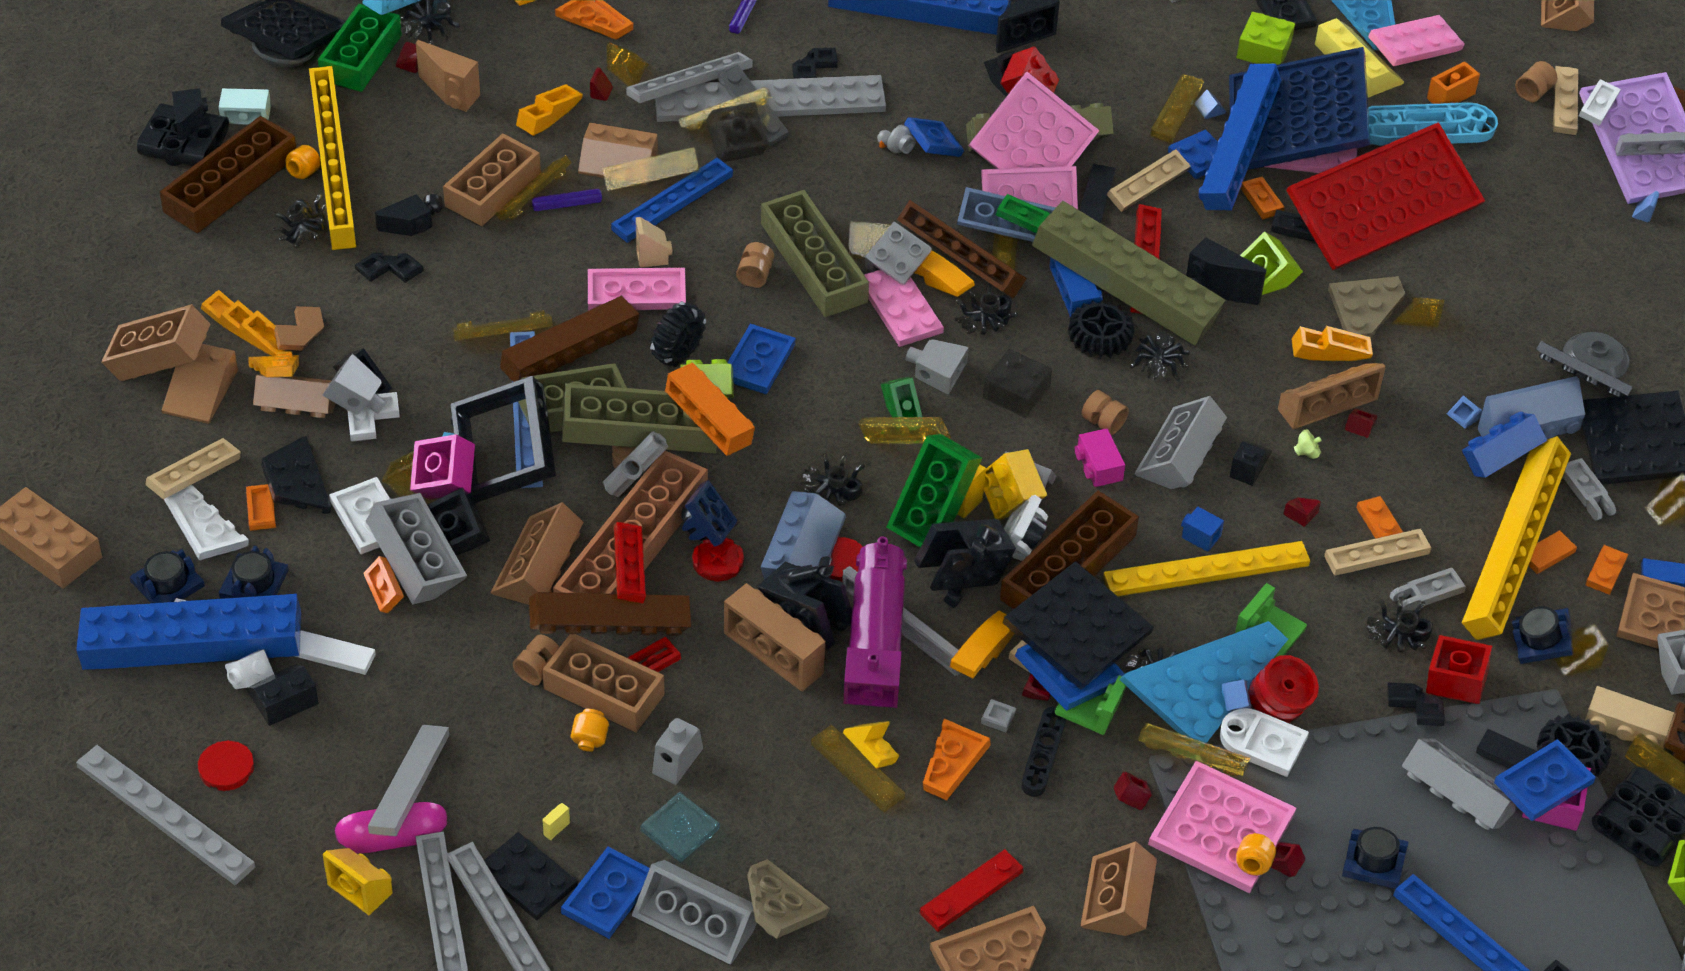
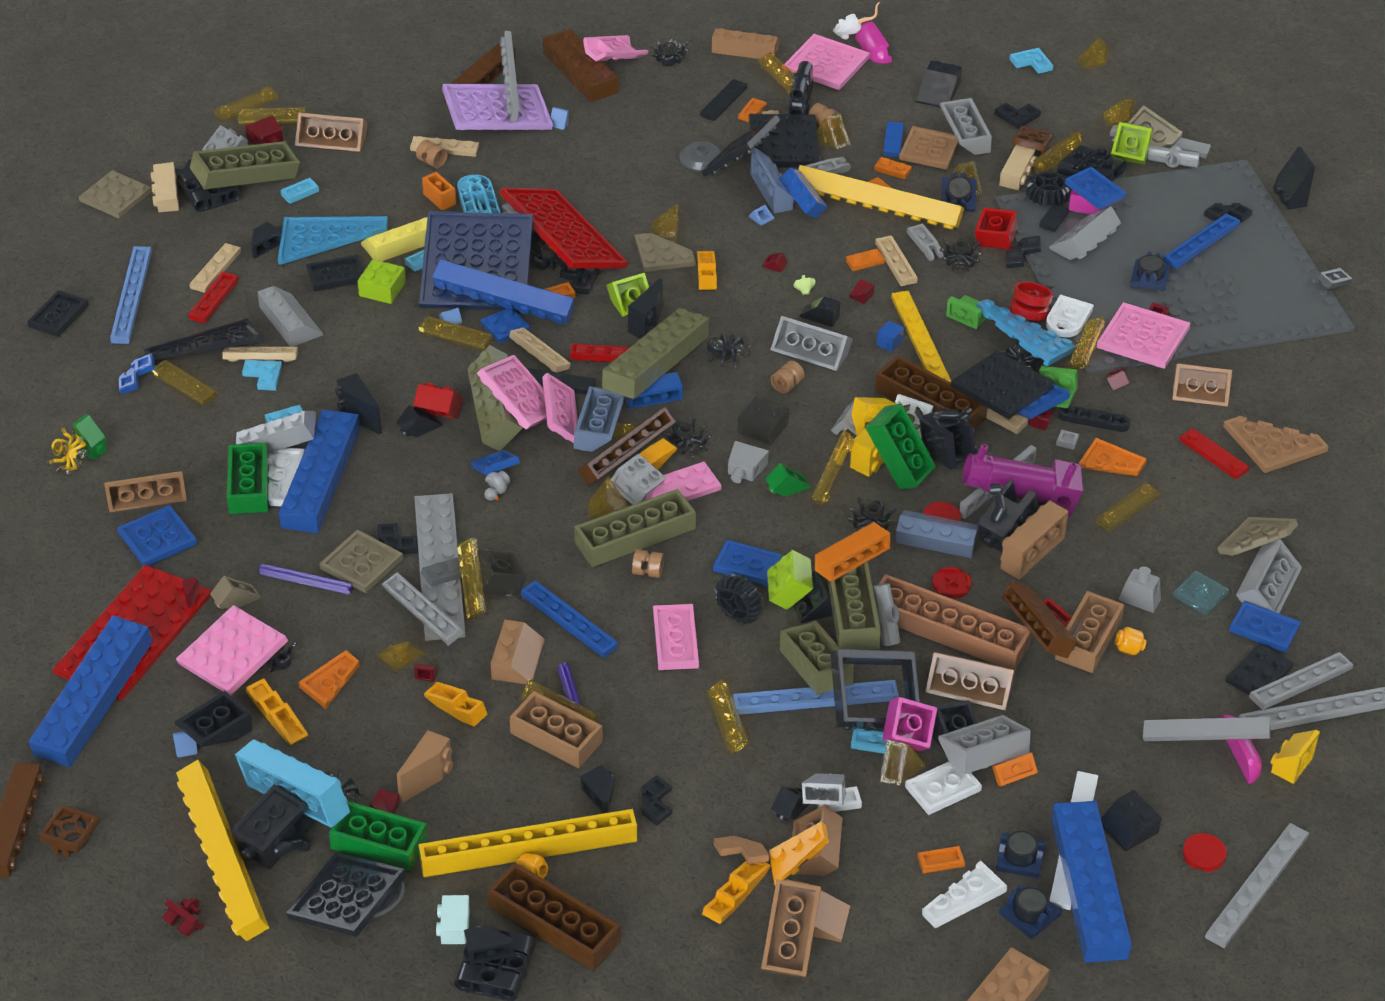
camera: 90 degrees left, 5 degrees down
(193, 468) = (918, 898): tan plate -> none
(249, 670) = (1125, 843): white bracket -> none
(295, 477) = (907, 837): black wing -> none
(302, 218) = (610, 857): animal -> none
(433, 202) = (578, 771): black hinge -> none
(531, 661) = (1073, 671): medium nougat wheel -> none
(556, 821) = (1214, 655): light yellow tile -> none
(570, 340) = (748, 666): reddish brown brick -> none
(629, 562) = (996, 604): red tile -> none
(650, 169) = (540, 628): clear yellow plate -> none
(651, 244) = (632, 626): tan slope -> none
(707, 515) = (929, 579): dark blue piece -> none
(774, 35) = (361, 561): none -> dark tan plate
(870, 743) = (1106, 495): yellow slope -> none
(982, 646) = (1008, 437): light orange slope -> none
(1021, 213) = (605, 399): green plate -> none
(1100, 457) = (830, 382): dark pink brick -> none
(1101, 329) = (712, 379): black gear -> none
(1236, 695) = (1041, 319): medium blue slope -> none
(1255, 854) = (1173, 313): light orange head -> none
(1331, 395) = (759, 266): medium nougat slope -> none
(1416, 40) = (384, 206): bright pink plate -> none
(1599, 102) = (476, 115): white plate -> none

